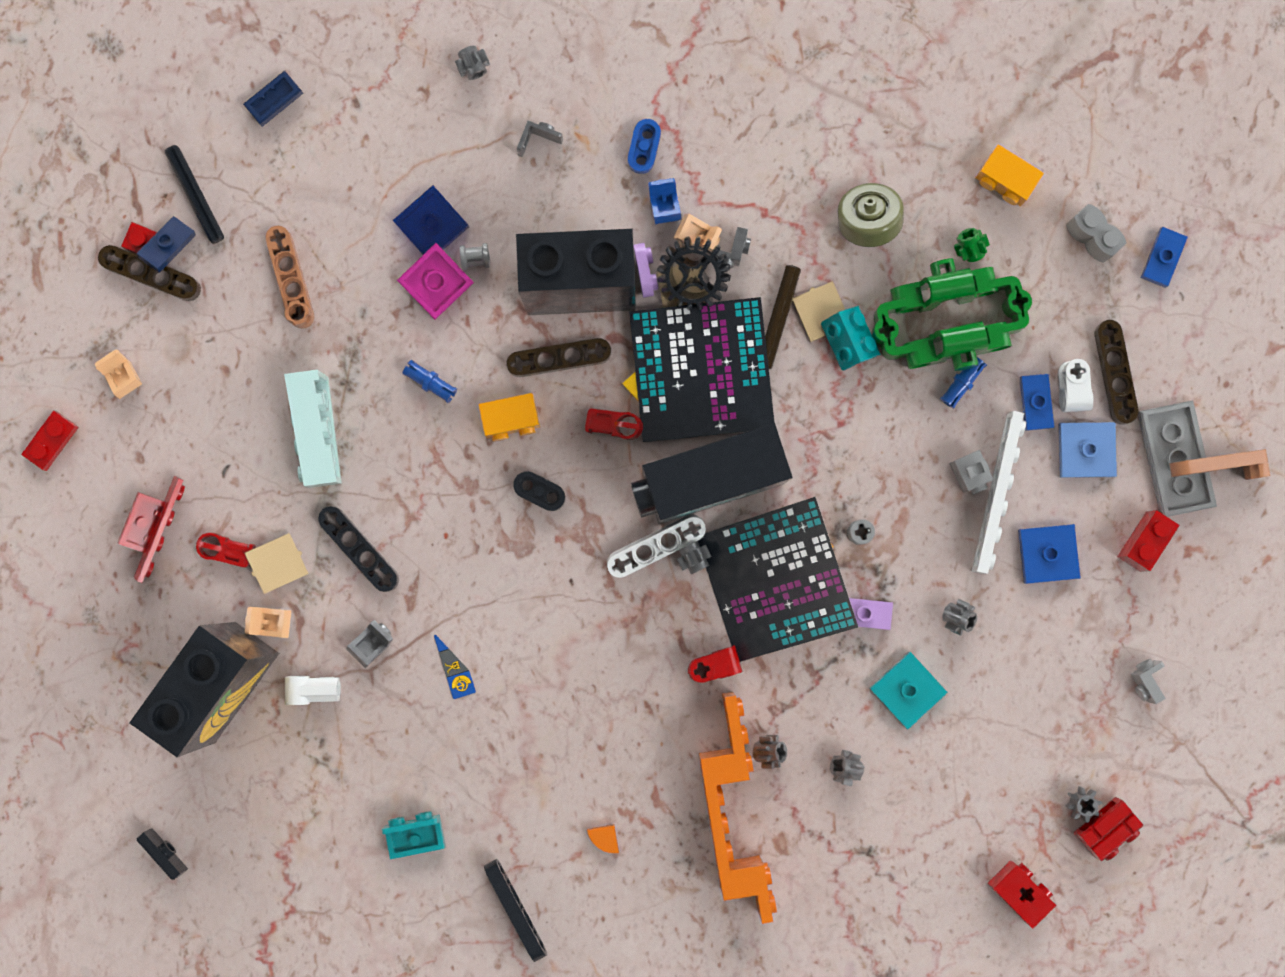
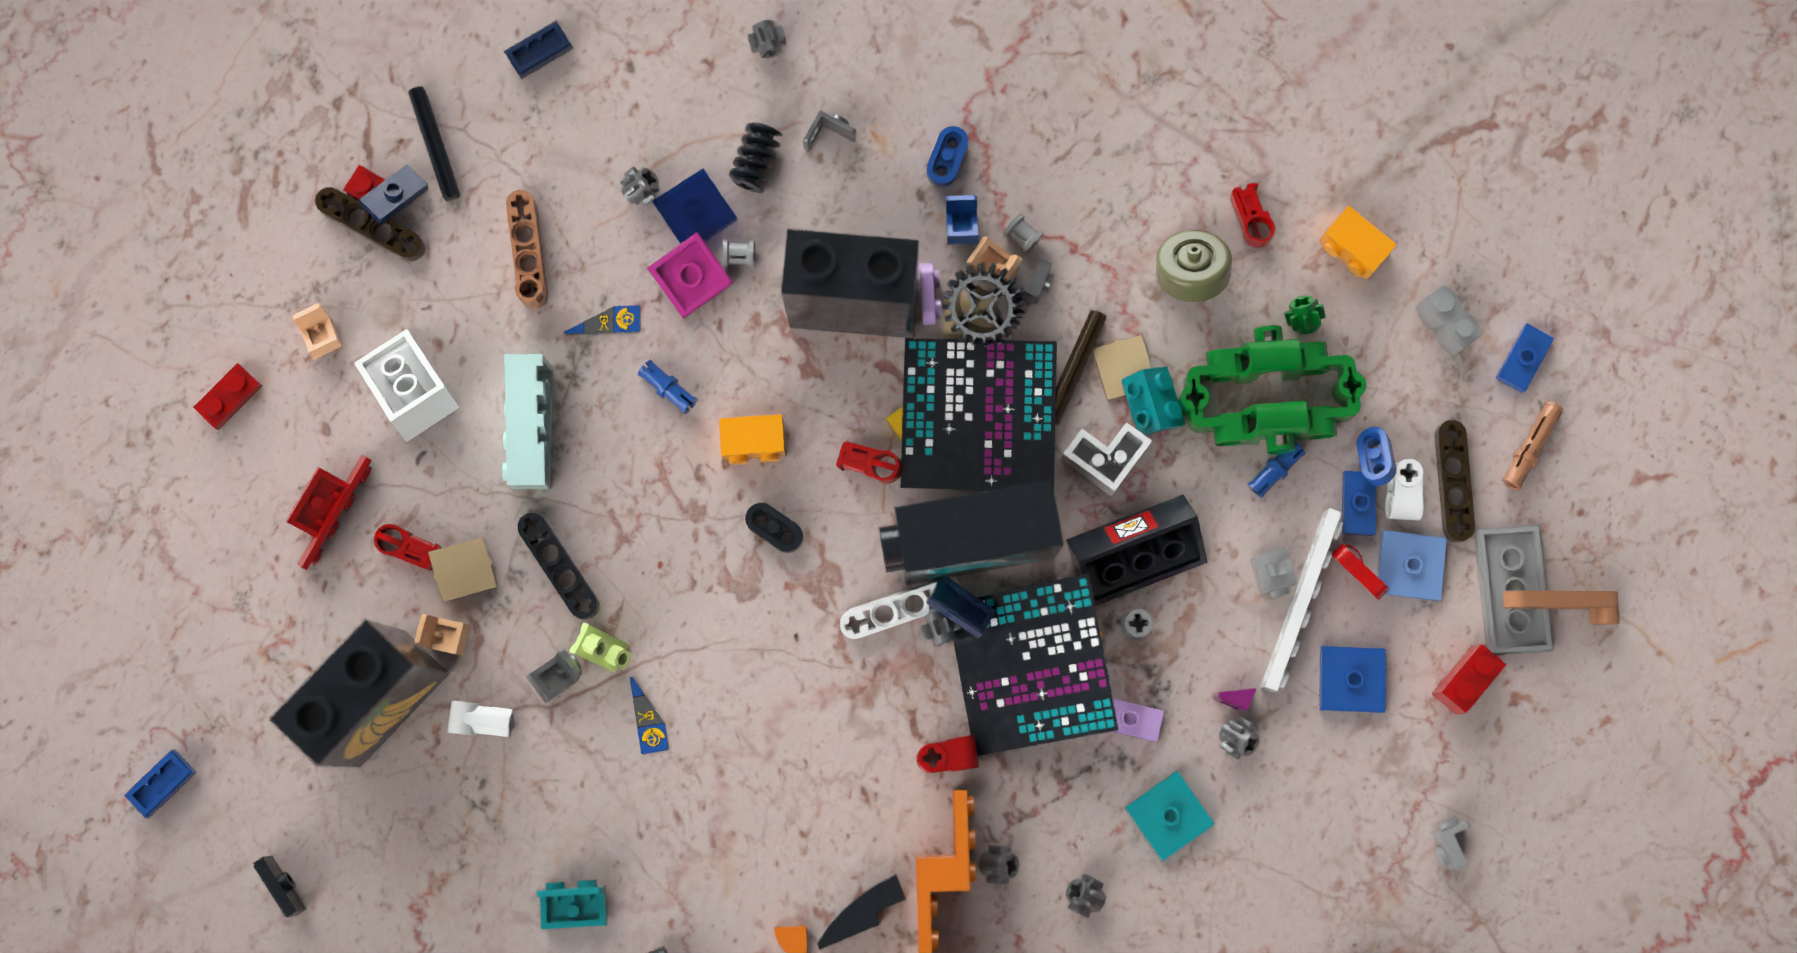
camera: 10 degrees right, 5 degrees down
(46, 781) = (160, 783): none -> blue plate
(203, 411) = (406, 385): none -> white slope
(374, 329) = (610, 321): none -> sticker
(380, 208) = (640, 185): none -> flat silver gear
(406, 615) = (601, 648): none -> yellowish green hips
(475, 169) = (753, 156): none -> black piece
(558, 353) = (818, 375): dark brown beam -> none
(659, 807) = (862, 911): none -> black slope
(709, 538) = (961, 606): none -> dark blue plate
(719, 206) = (1023, 233): none -> light grey bush
(819, 398) = (1103, 464): none -> white brick
(854, 467) = (1139, 549): none -> black slope
(913, 160) = (1249, 211): none -> red piece
(954, 584) = (1236, 699): none -> magenta slope
(1045, 461) = (1359, 570): none -> red piece
(1047, 362) = (1376, 459): none -> blue plate
(1176, 342) = (1526, 456): none -> nougat pin

